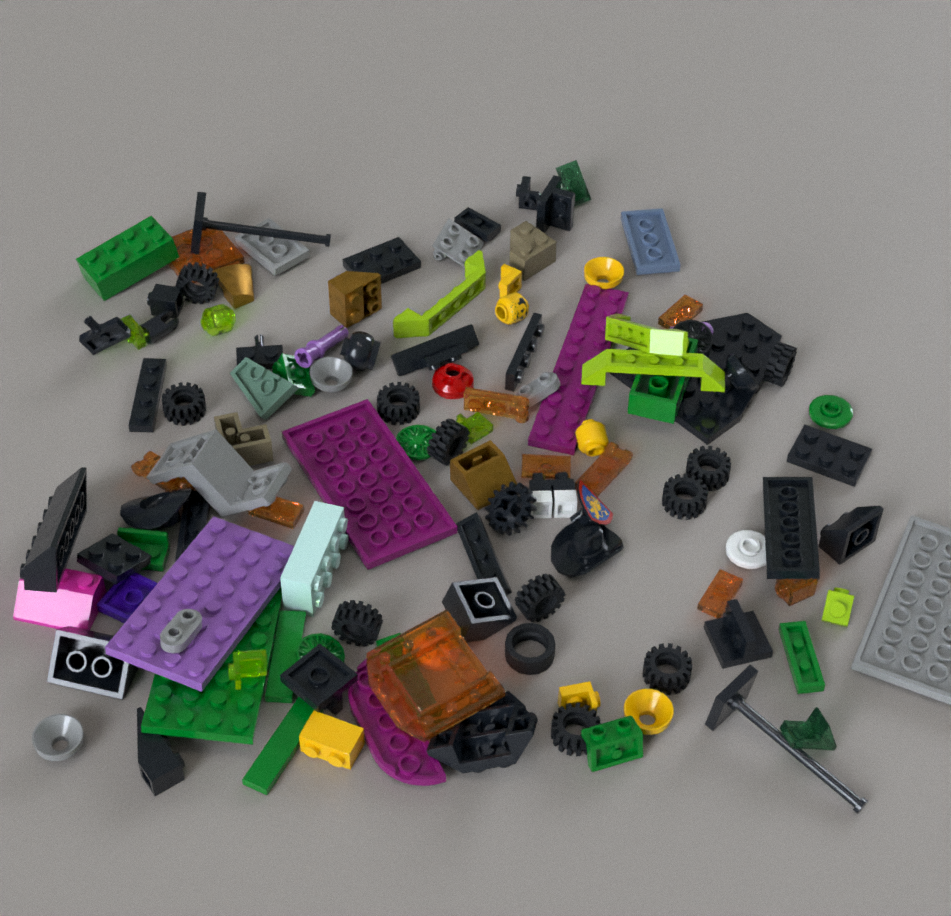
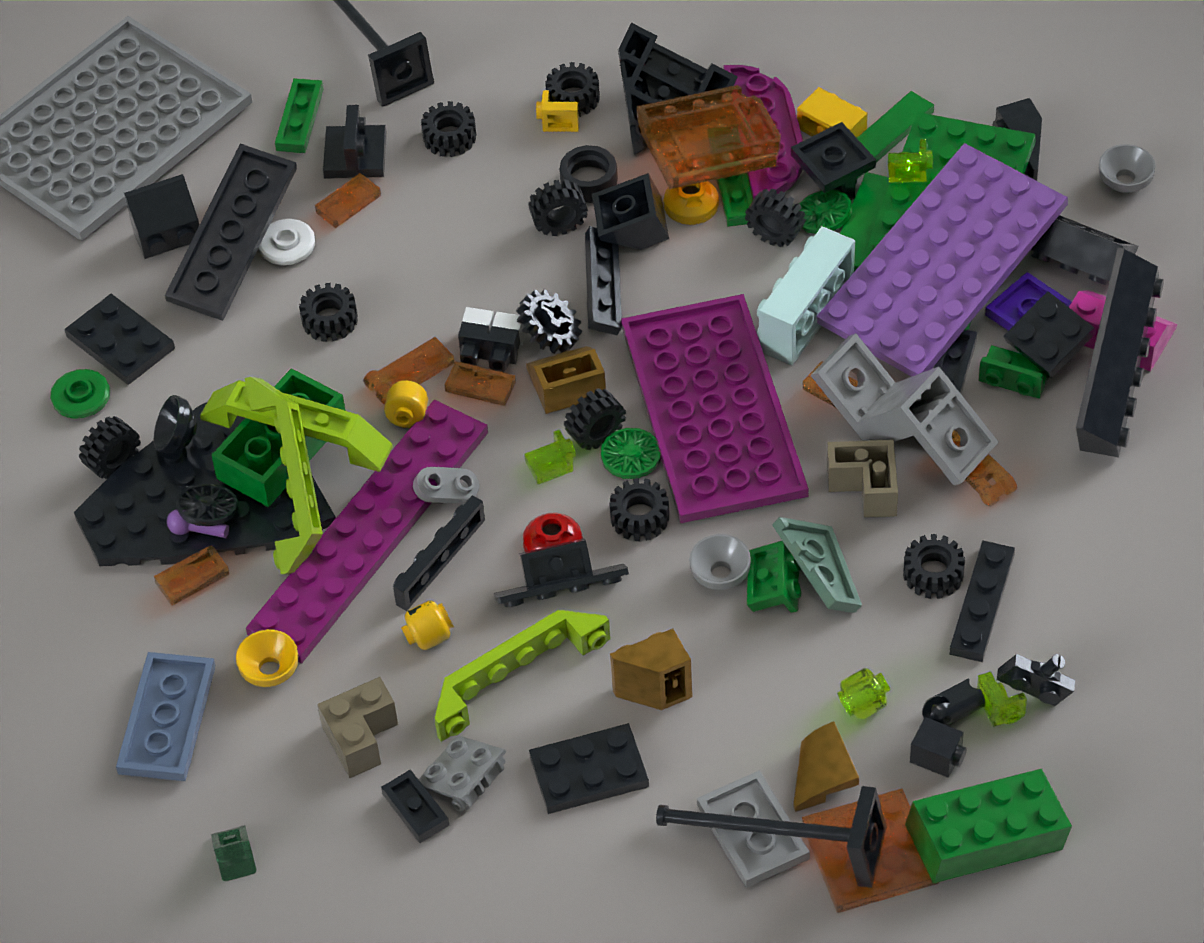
camera: 160 degrees left, 5 degrees up
(155, 510) = (996, 396): black hat -> none
(181, 631) = (981, 191): light grey plate -> none
(199, 274) = (885, 751): black tyre -> none
(261, 354) = (812, 631): black plate -> none
(316, 348) = (731, 600): medium lavender pin -> none
(360, 350) = (668, 584): black piece -> none
(496, 404) = (510, 478): clear orange plate -> none
(510, 280) = (411, 672): yellow bracket -> none
(527, 198) = (317, 847): black bracket -> none
(555, 207) = (289, 785): black bracket -> none
(583, 548) = (472, 271): black hat -> none
(592, 508) = (451, 295): shield -> none
(613, 743) = (541, 58): green bracket -> none
(650, 703) = (488, 78): yellow piece -> none
(711, 458) = (282, 355): black tyre -> none
(811, 734) = (338, 34): clear green slope -> none
(837, 607) = (220, 156): lime bracket -> none

